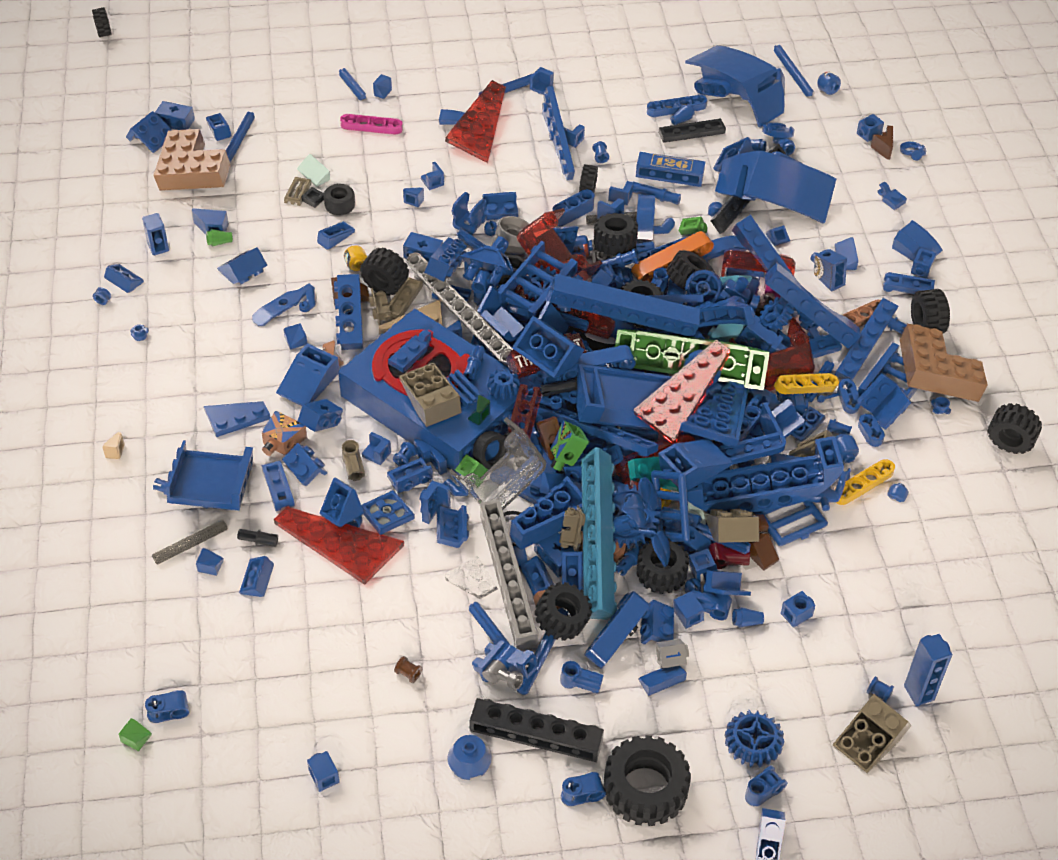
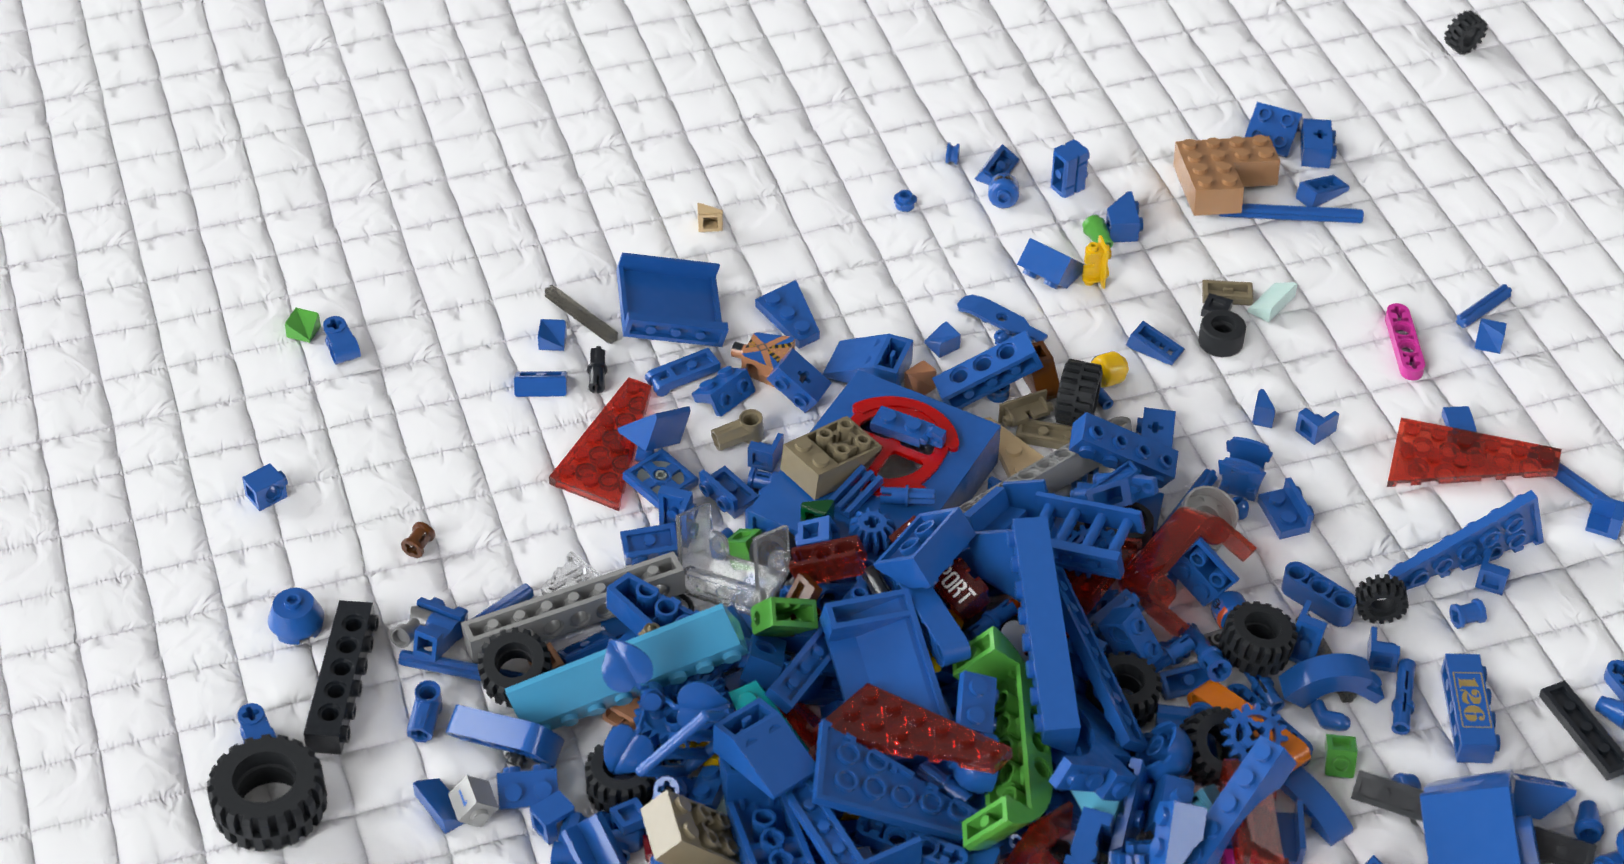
camera: 80 degrees right, 5 degrees down
(156, 275) = (1003, 190): none -> blue head
(258, 237) = (1097, 259): none -> yellow hinge
(503, 407) = (816, 531): none -> blue brick
(661, 360) = (977, 702): none -> blue bracket
(699, 246) = (1248, 725): none -> blue gear

